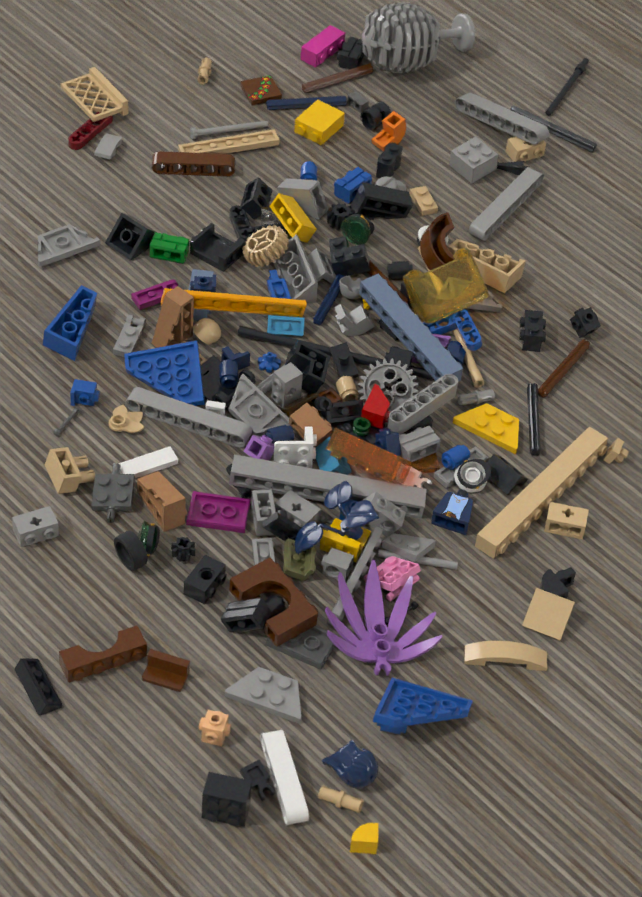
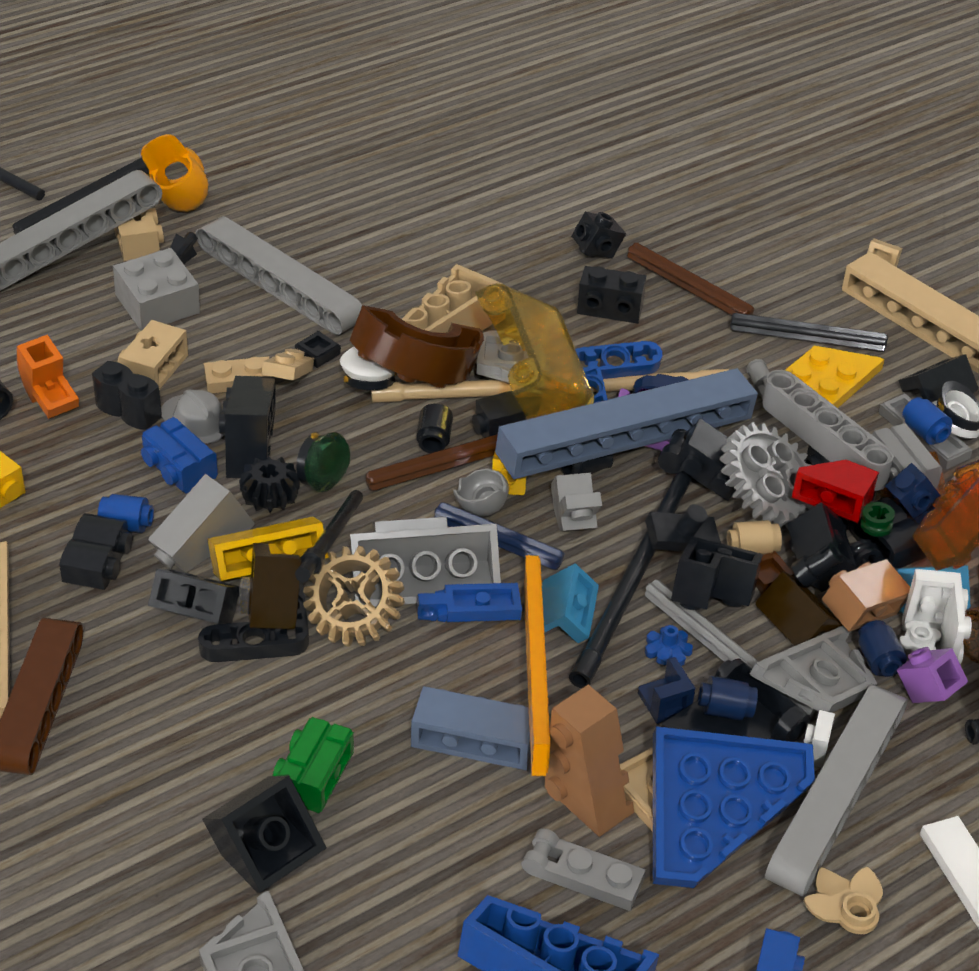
camera: 80 degrees left, 5 degrees down
(152, 295) = (460, 805): magenta plate -> none
(205, 284) = (492, 695): dark blue brick -> none
(216, 249) = (330, 683): black panel -> none
(256, 211) = (273, 589): none -> dark brown panel
(268, 218) = (314, 557): none -> black bar
(281, 167) = (95, 551): none -> black brick
(286, 385) = (766, 611): light grey brick -> none
(347, 259) = (401, 491): black brick -> none
(423, 167) = (156, 351): none -> tan brick
(425, 210) = (288, 365): none -> tan plate
(459, 226) = (319, 347): none -> black tile
(570, 153) = (182, 193): none -> light orange piece

